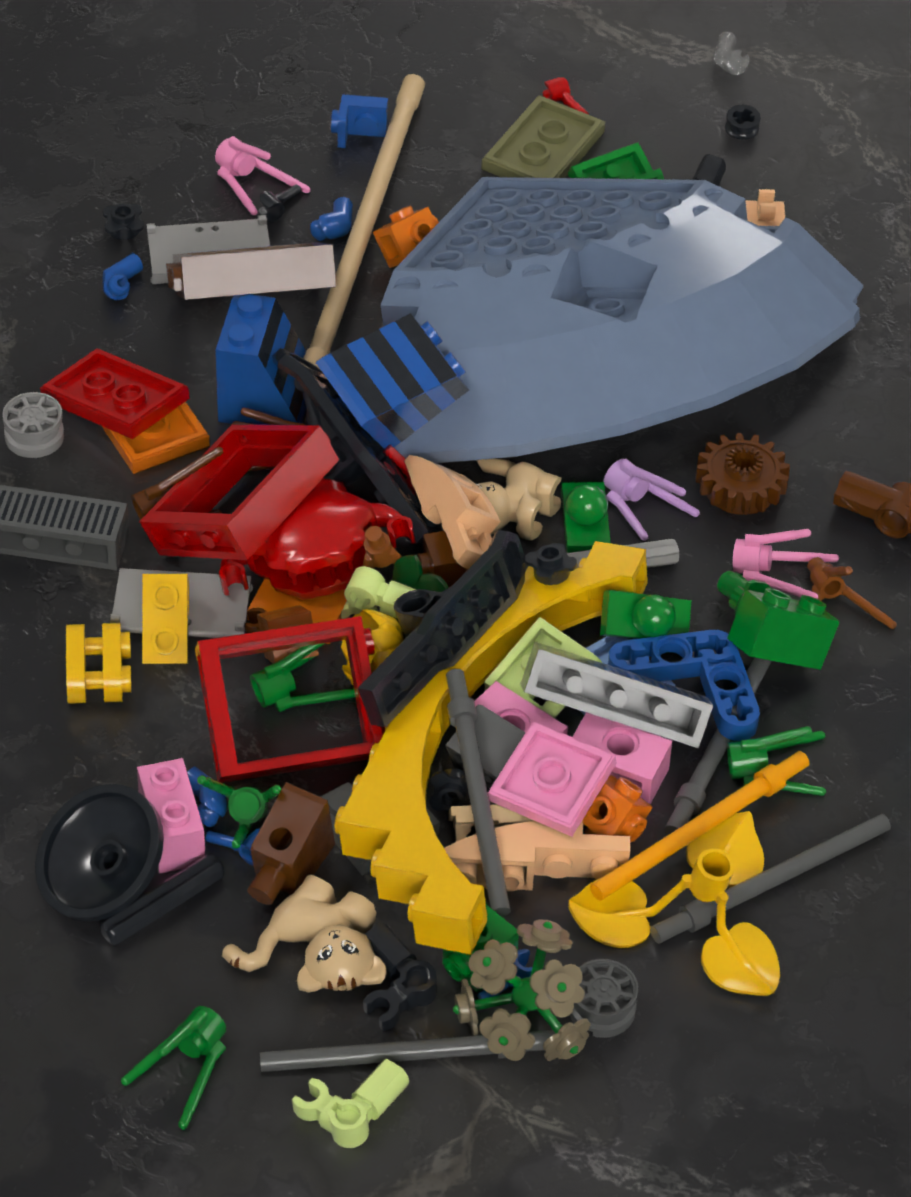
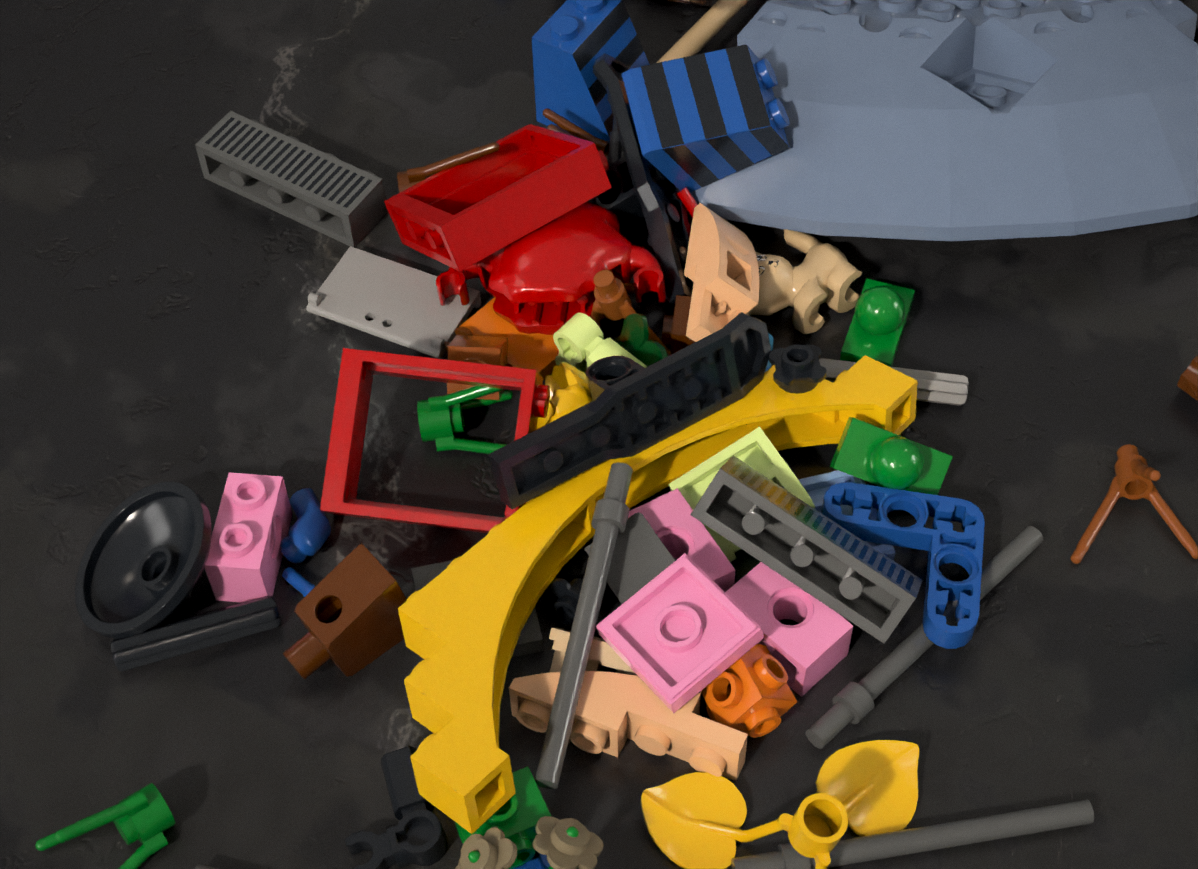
camera: 25 degrees right, 5 degrees up
(35, 427) = (346, 81): light grey wheel -> none
(113, 679) = (267, 341): yellow brick -> none
(116, 393) = (440, 65): red tile -> none
(165, 618) = (360, 307): yellow plate -> none
(166, 440) = (464, 110): orange tile -> none
(245, 804) = (328, 550): green plant -> none
(337, 951) = (342, 771): tan animal -> none
(632, 483) = (945, 300): lavender plant -> none
(742, 474) = (1079, 323): reddish brown gear -> none
(751, 755) = (948, 674): green plant -> none
(753, 557) = (1052, 423): bright pink plant -> none
(765, 783) = (955, 712): light orange bar -> none
(776, 626) = (1042, 519): green brick -> none

